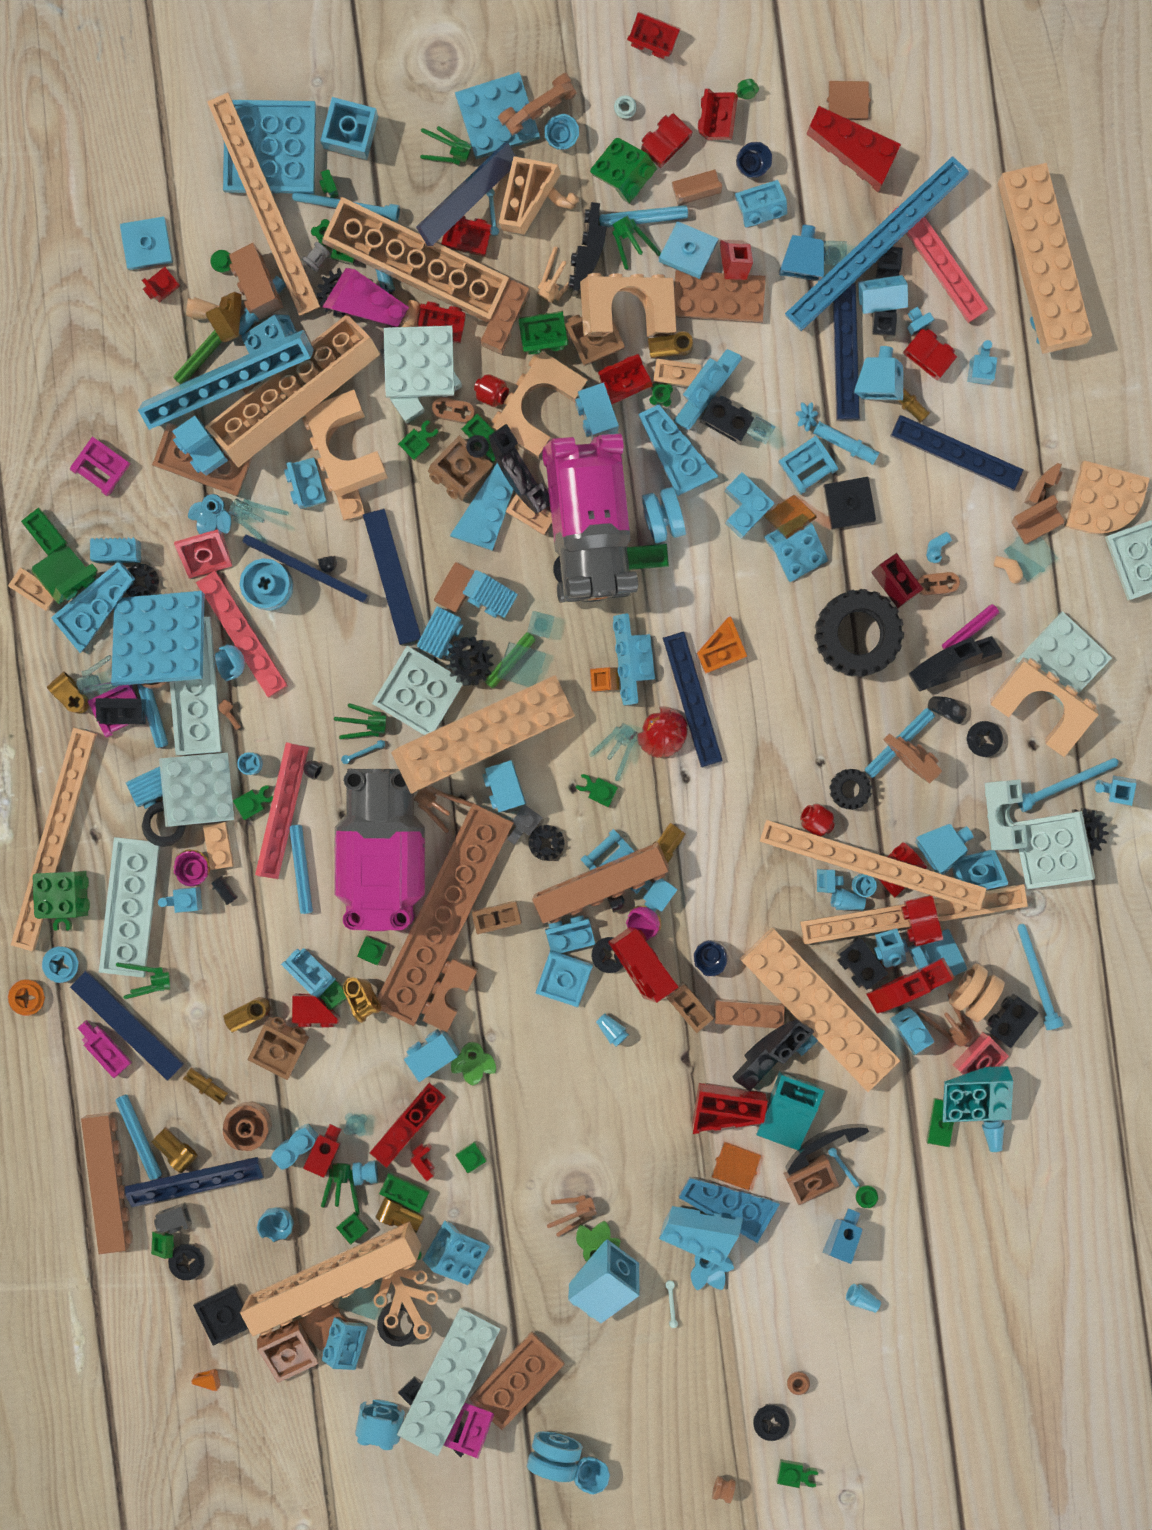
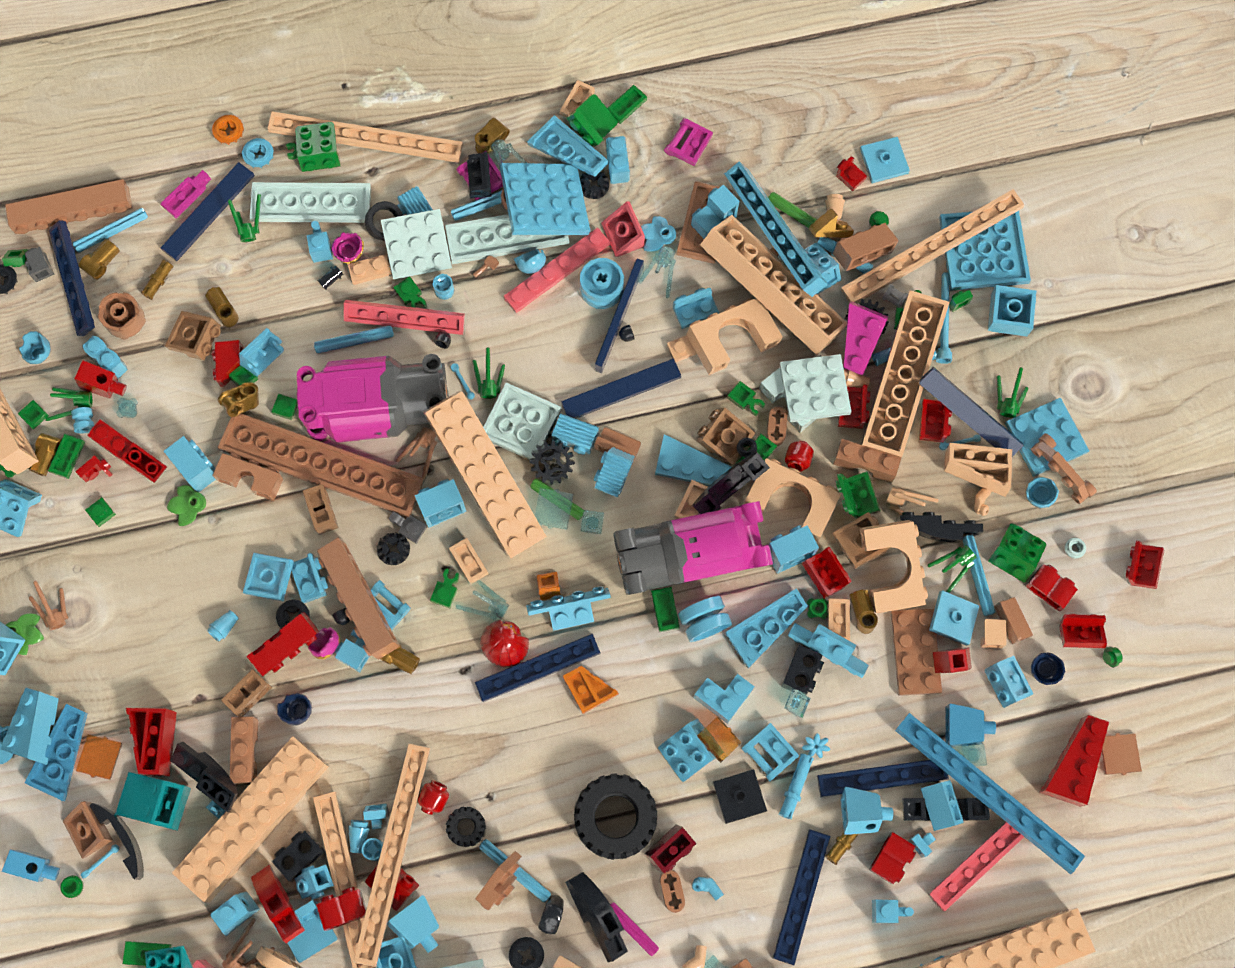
camera: 75 degrees right, 15 degrees down
(569, 762) = (468, 561): none -> light nougat plate
(710, 210) = (994, 634): none -> light nougat panel

